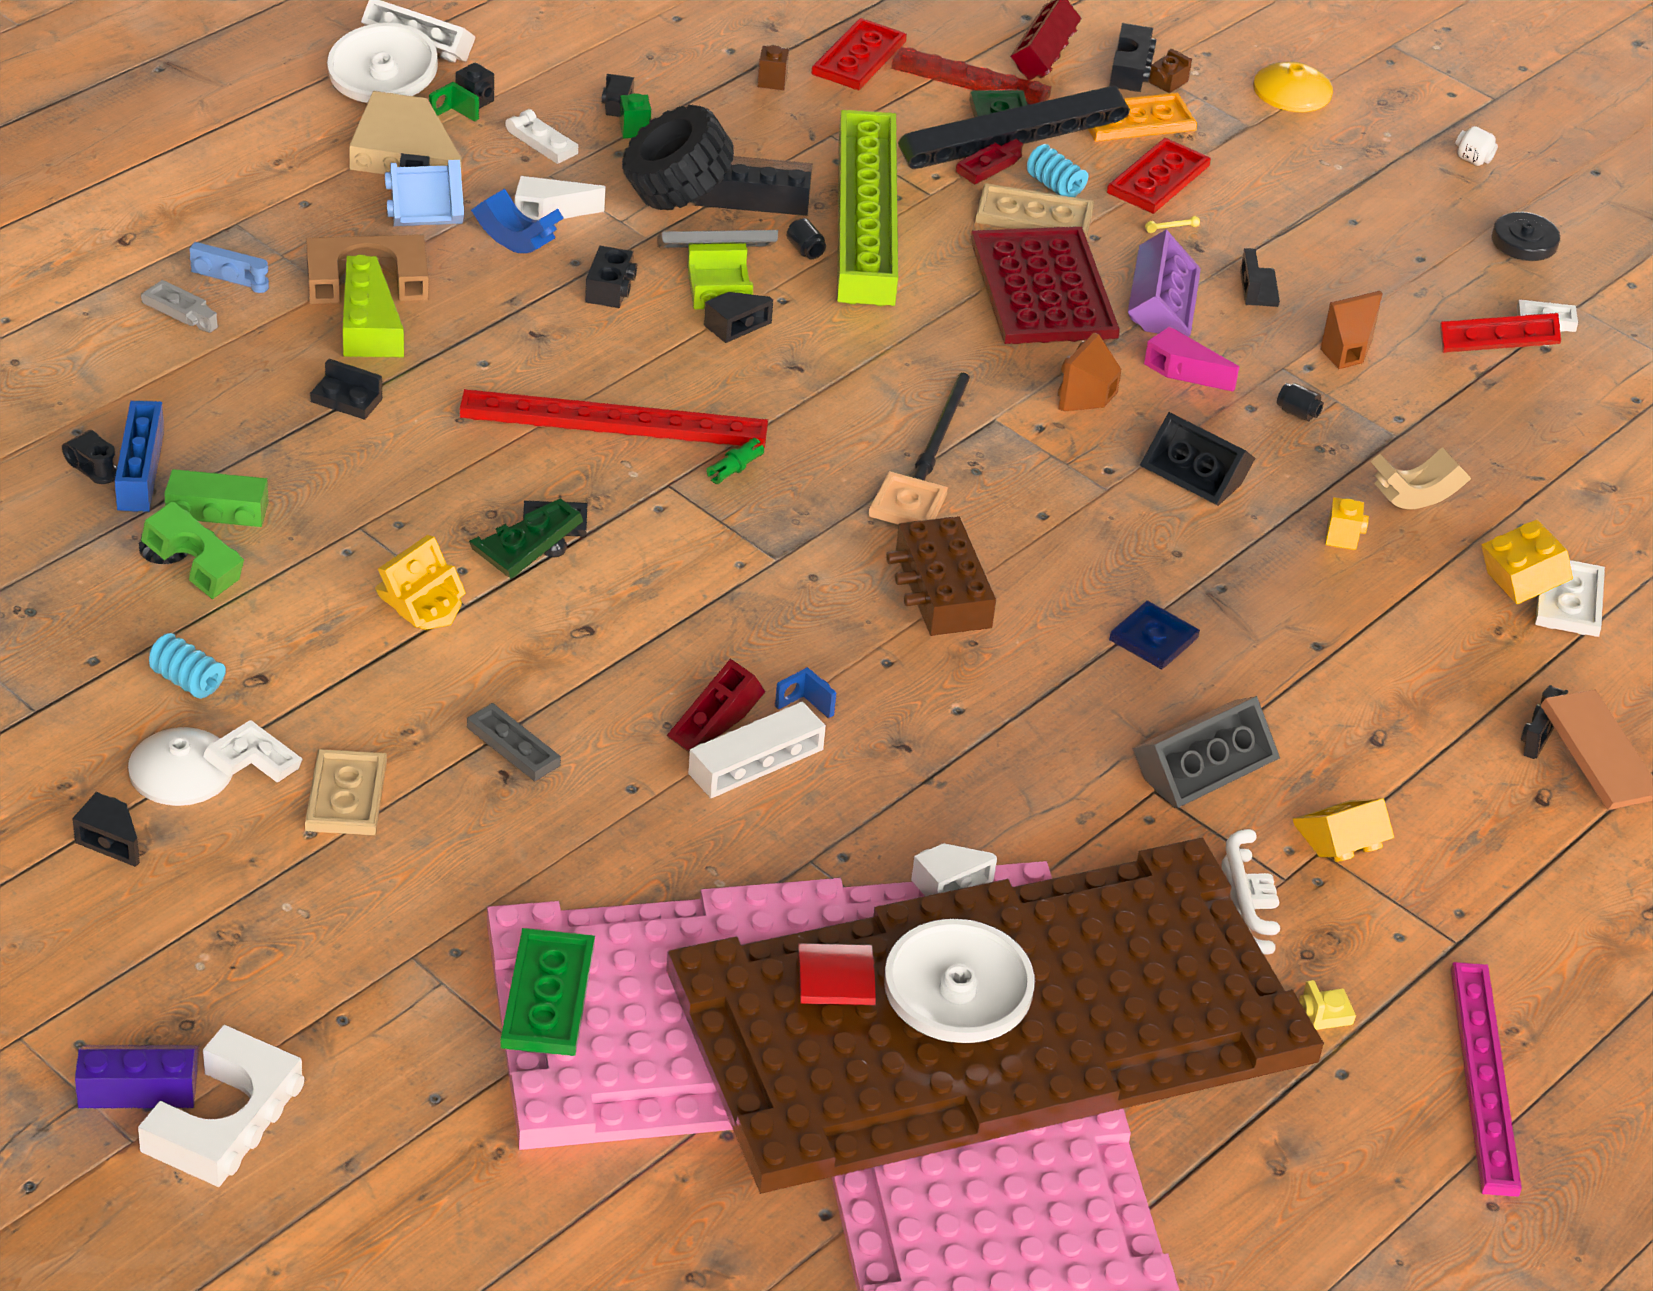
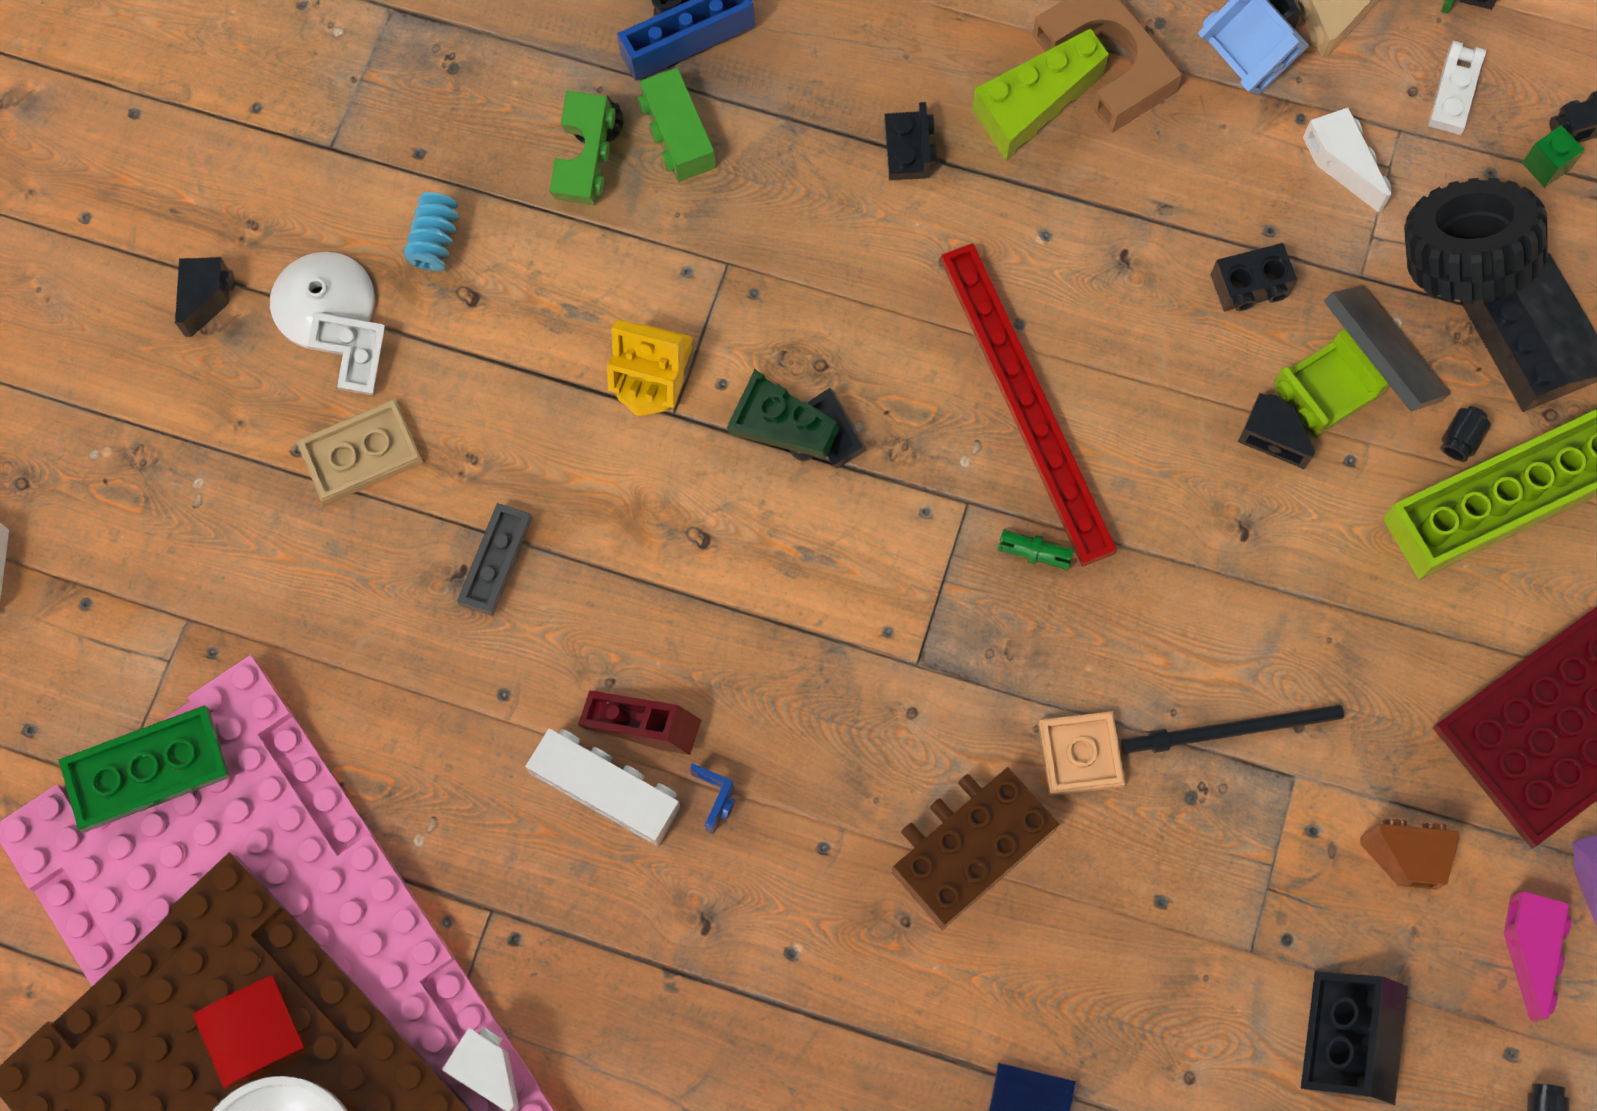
camera: 70 degrees right, 30 degrees up
(511, 227) = (1270, 144): blue arch -> none

